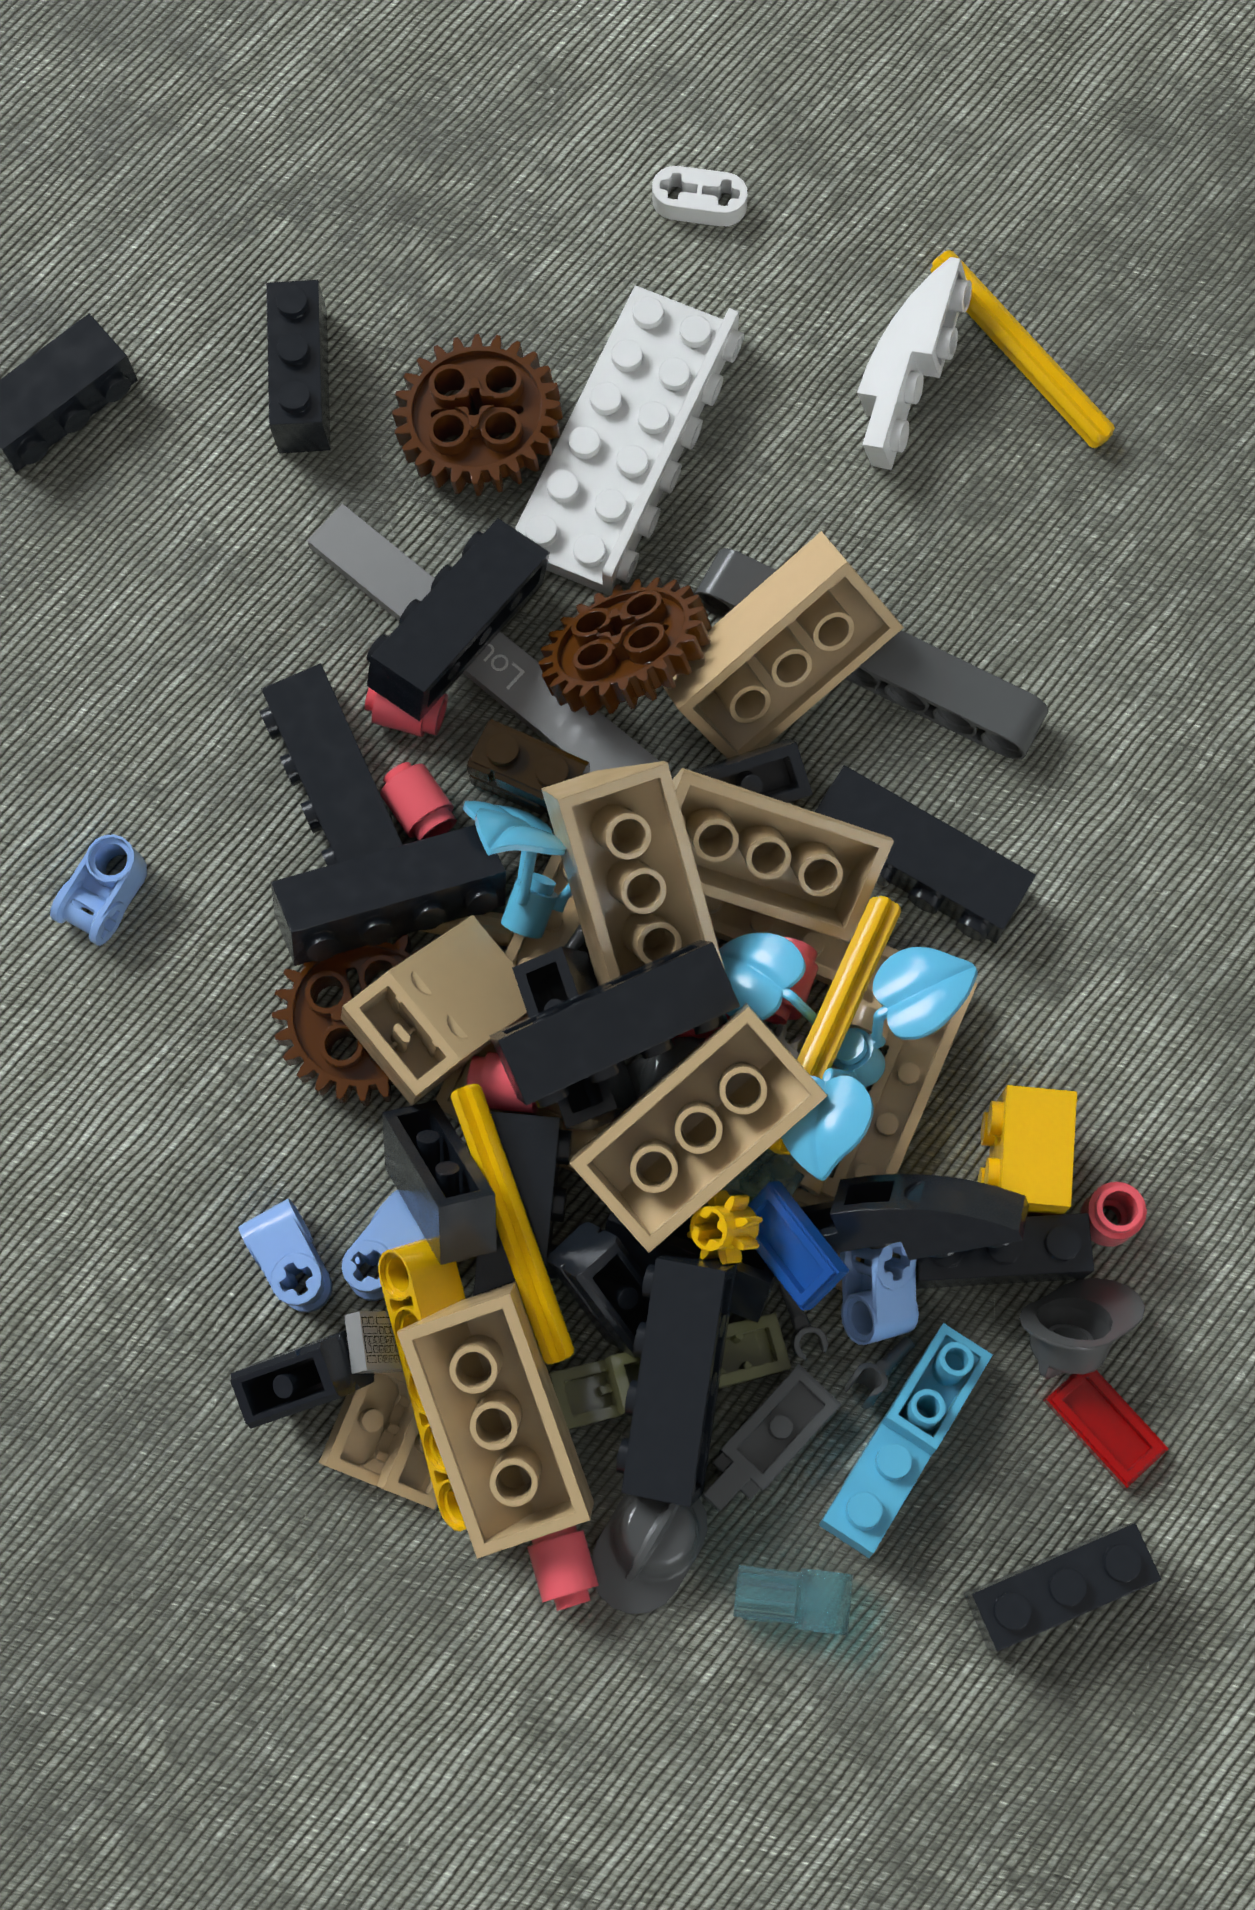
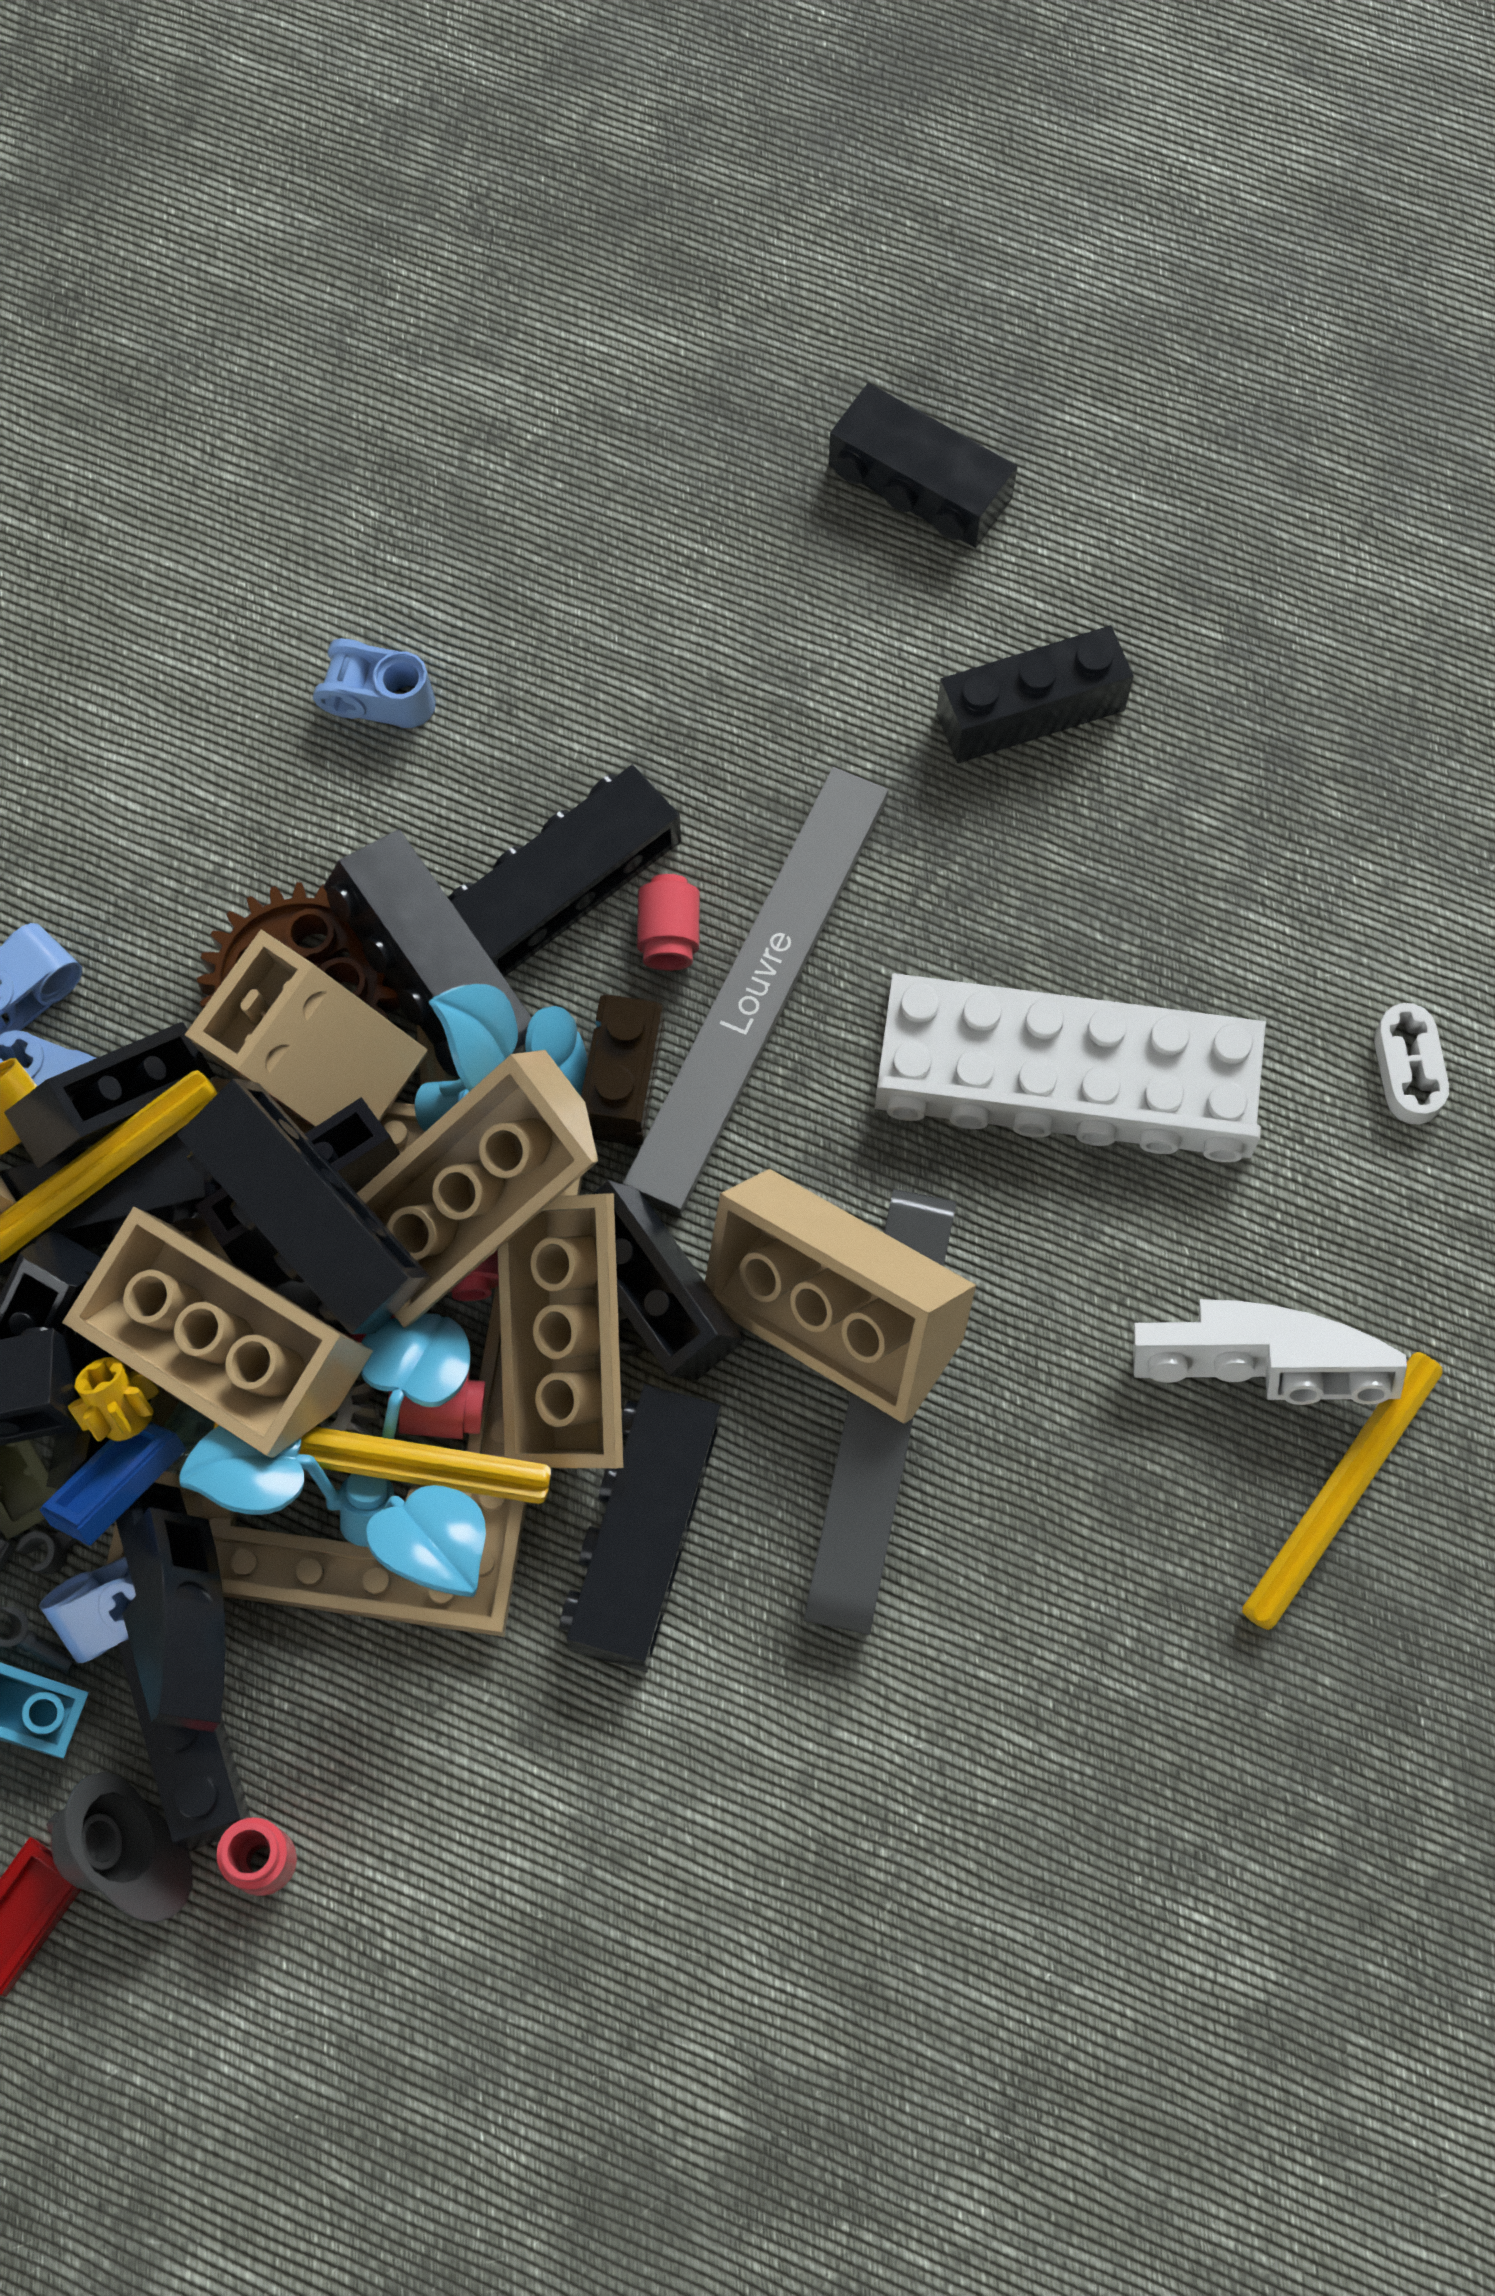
camera: 70 degrees right, 5 degrees down
(417, 801) = (557, 965): coral brick -> none
(456, 618) = (774, 937): black brick -> none
(476, 454) = (1092, 884): reddish brown gear -> none
(625, 646) = (792, 1123): reddish brown gear -> none
(1032, 1146) = (297, 1734): yellow brick -> none

